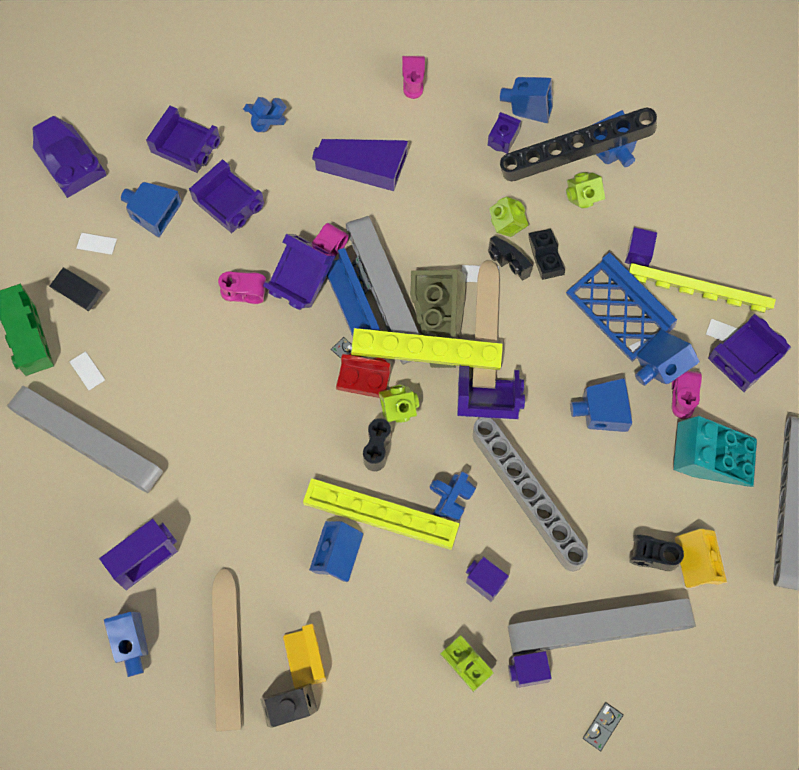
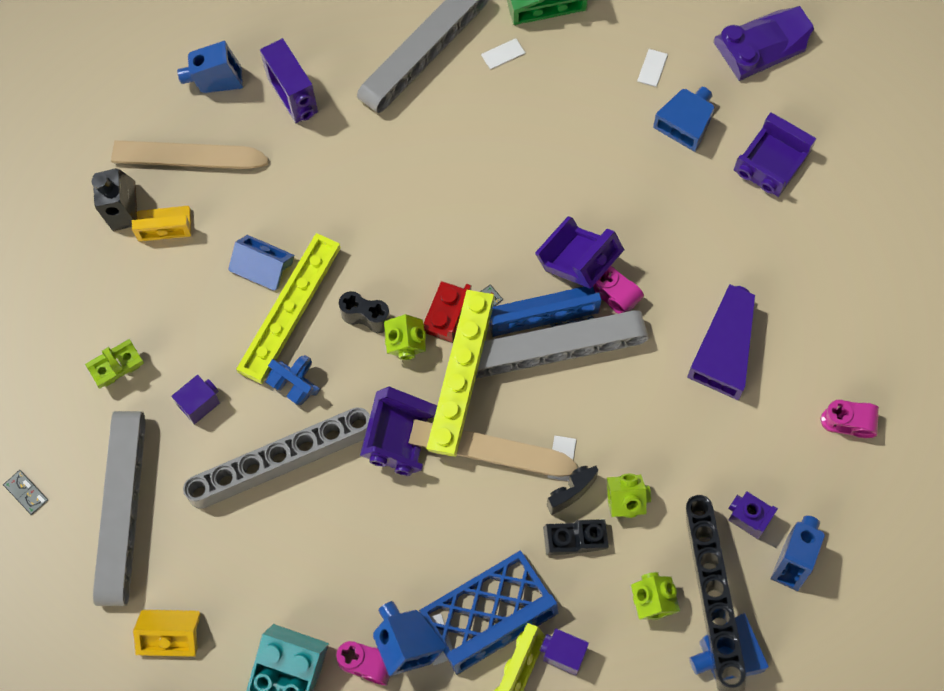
camera: 100 degrees right, 0 degrees up
(75, 289) = (592, 42): black slope -> none
(226, 197) = (693, 194): dark purple panel -> none
(244, 287) = (573, 200): dark pink piece -> none
(262, 107) = (799, 229): blue hips -> none
(439, 303) = (521, 401): olive wedge -> none
(529, 669) = (93, 425): dark purple brick -> none
(605, 407) = (363, 562): blue torso -> none
(654, 553) = (184, 575): black piece -> none

